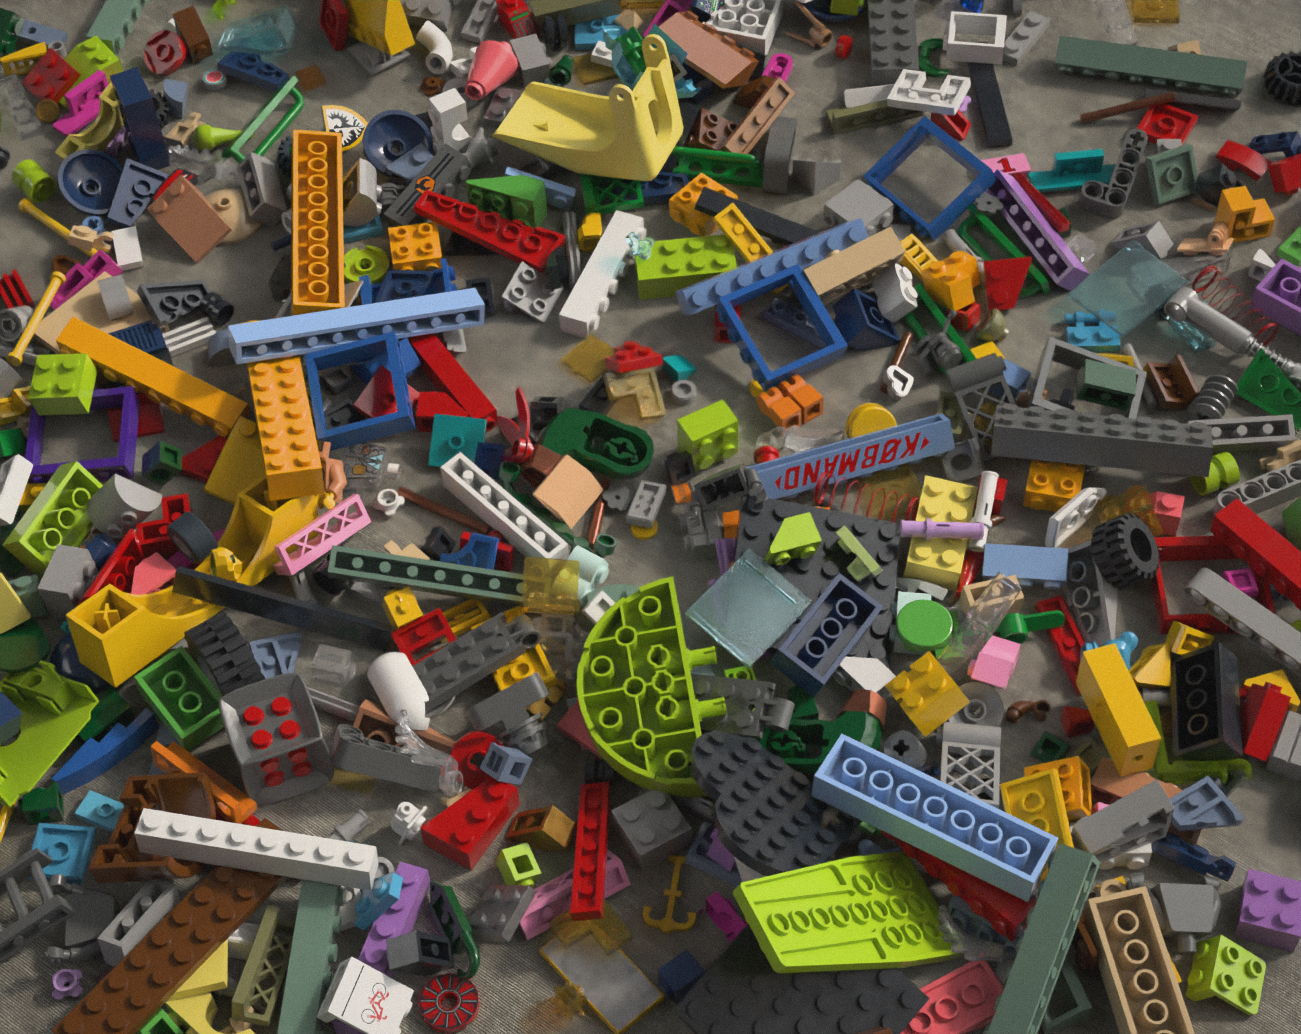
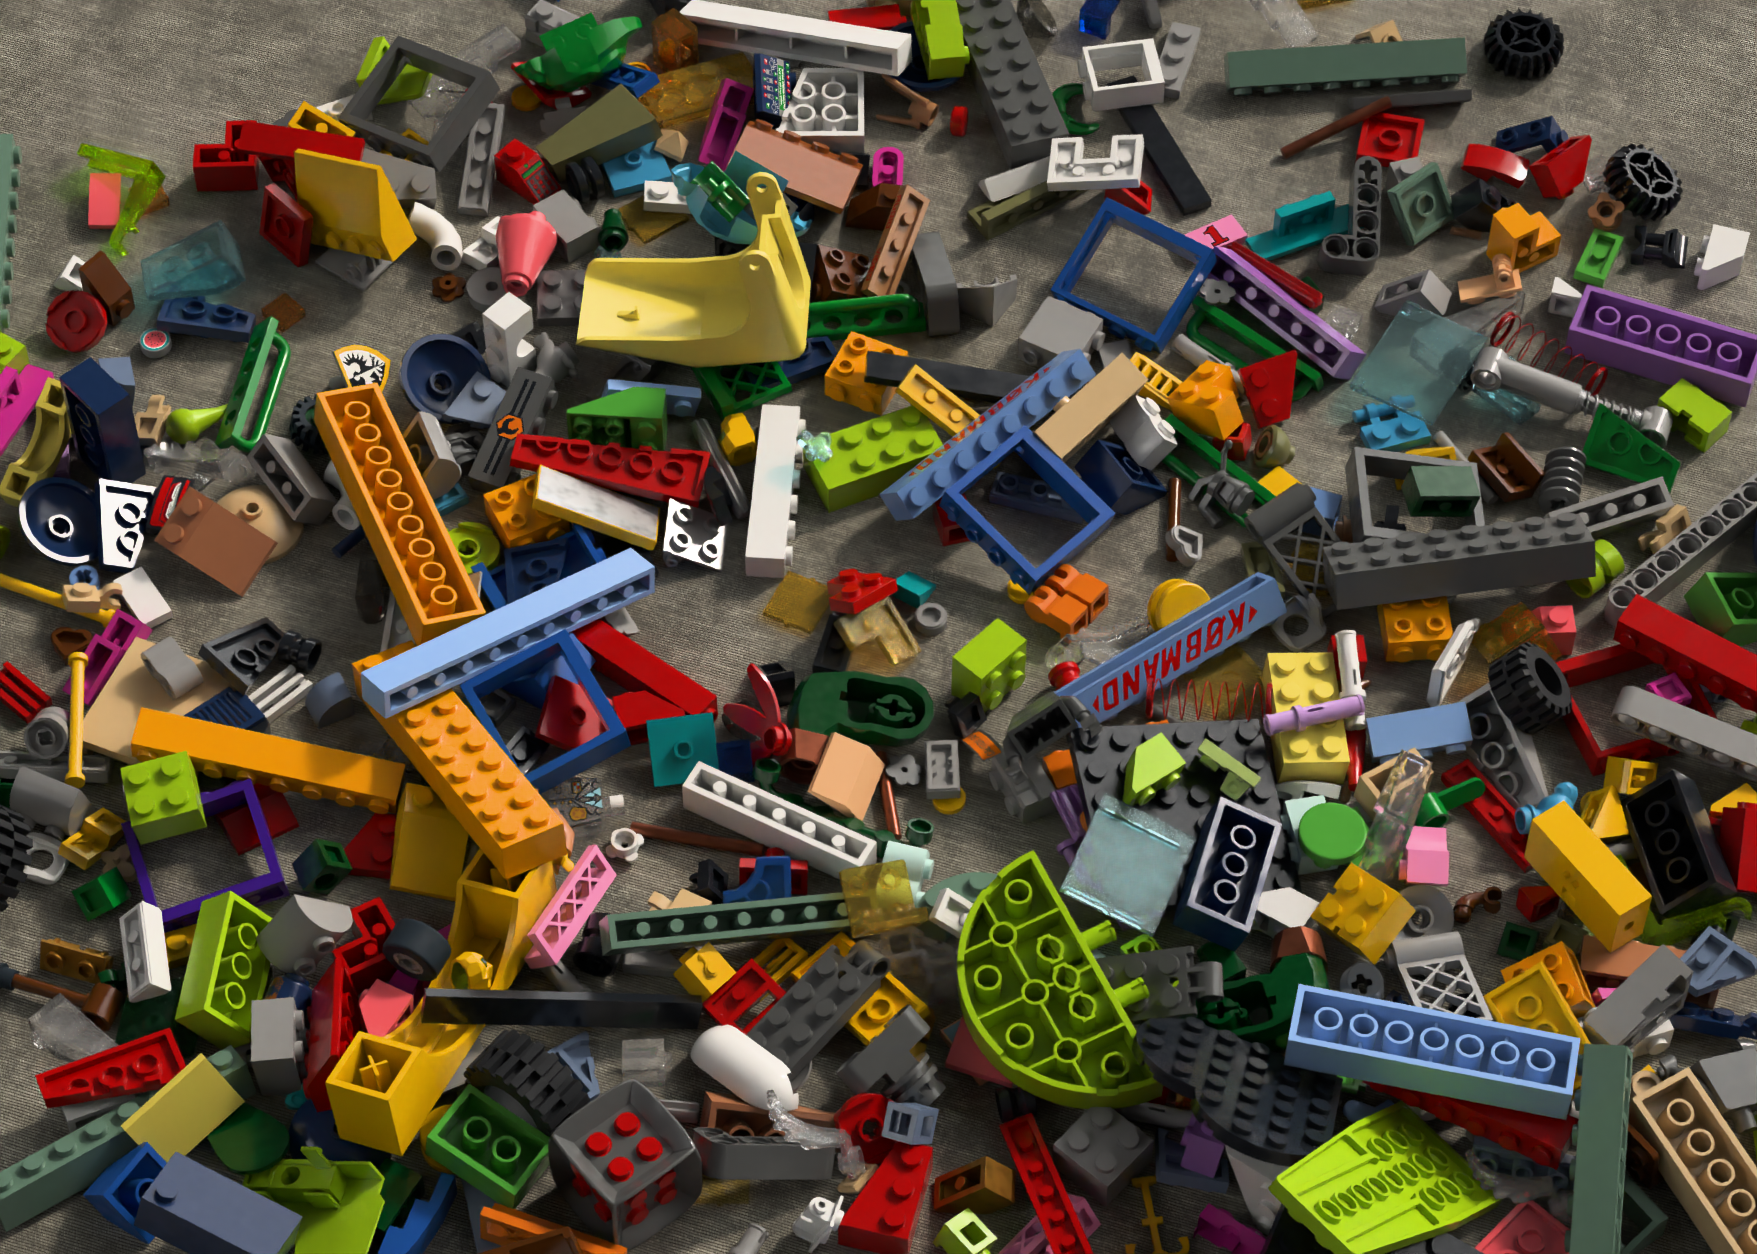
camera: 20 degrees left, 0 degrees up
(463, 255) = (596, 508): none -> flat silver tile

